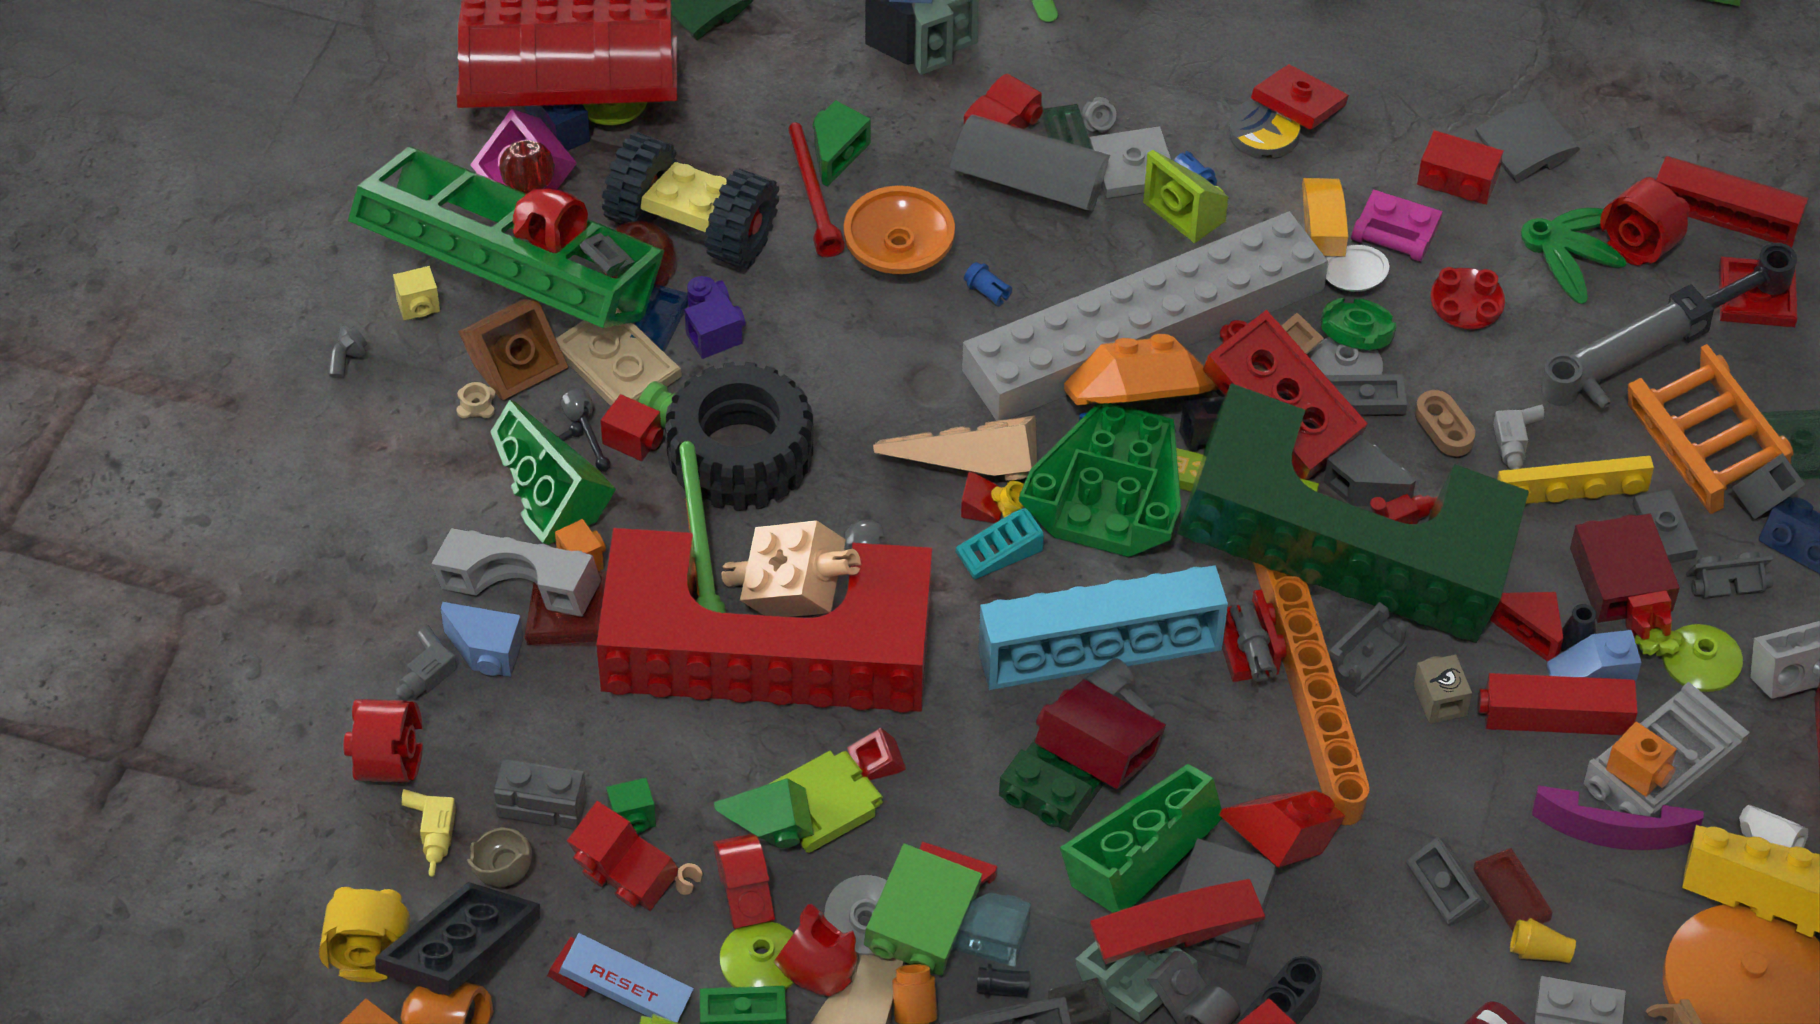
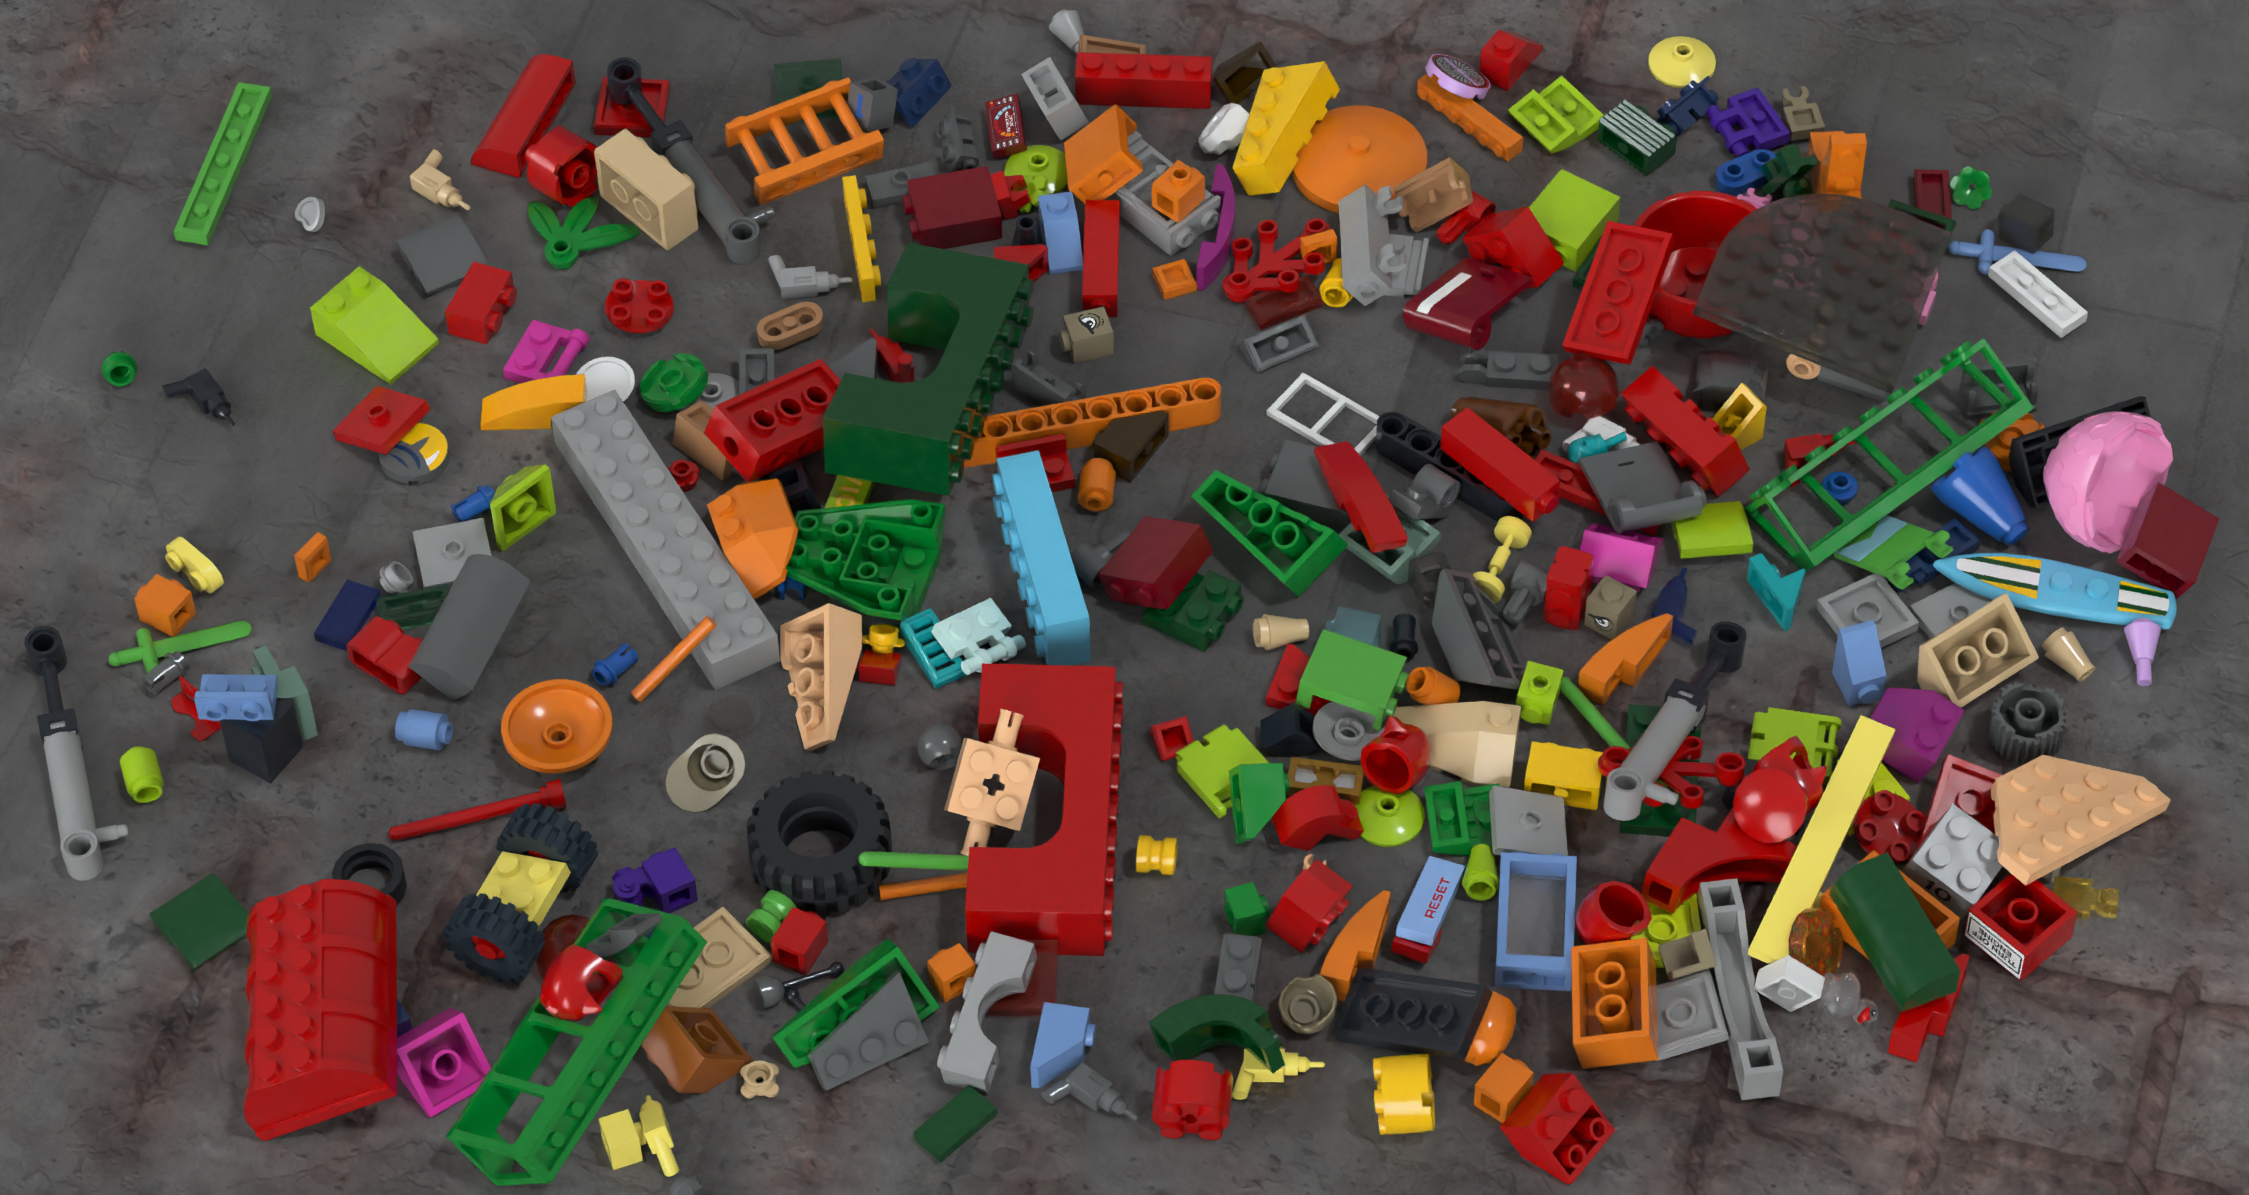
camera: 90 degrees left, 0 degrees up
(403, 556) = (955, 1123): none -> dark green tile
(421, 317) = (658, 1135): none -> light yellow piece
(469, 788) = (1215, 1021): none -> dark green arch
(506, 481) = (870, 1037): none -> dark grey wing
(526, 166) = (486, 1024): clear red piece -> none
(574, 907) = (1357, 944): none -> orange slope
(711, 732) = (1156, 855): none -> yellow wheel
(732, 89) = (377, 856): none -> black tyre
(803, 885) = (1309, 773): none -> pearl gold piece
(839, 139) = (422, 790): green slope -> none
(843, 351) = (705, 772): none -> dark tan piece
(870, 856) = (1288, 732): none -> black brick
(912, 140) = (423, 729): none -> medium blue brick
(977, 316) = (674, 658): none -> orange bar
(1013, 565) = (973, 628): none -> light aqua plate
(1013, 856) = (1279, 631): none -> tan cone
(1061, 84) = (347, 614): none -> clear blue tile
(1124, 52) = (313, 557): none -> orange tile
(1223, 692) = (1096, 485): none -> orange brick
(1253, 640) = (1055, 452): dark grey pin -> none
(1281, 724) = (1131, 442): none -> dark brown slope
(1286, 825) = (1242, 433): red slope -> none
(1313, 911) = (1313, 433): none -> white window
(1425, 86) = (372, 326): none -> lime slope
(1536, 846) = (1244, 283): none -> red plant
(1539, 773) = (1174, 279): none -> orange tile
(1576, 39) = (311, 213): none -> light grey piece
(1588, 963) = (1366, 245): none -> light grey brick
(1589, 922) = (1321, 242): none -> orange tile
(1617, 286) = (646, 189): none -> tan brick
(1628, 130) = (435, 184): none -> tan piece
(1666, 683) = (1100, 156): none -> orange panel
(1757, 620) = (1006, 126): none -> dark red tile

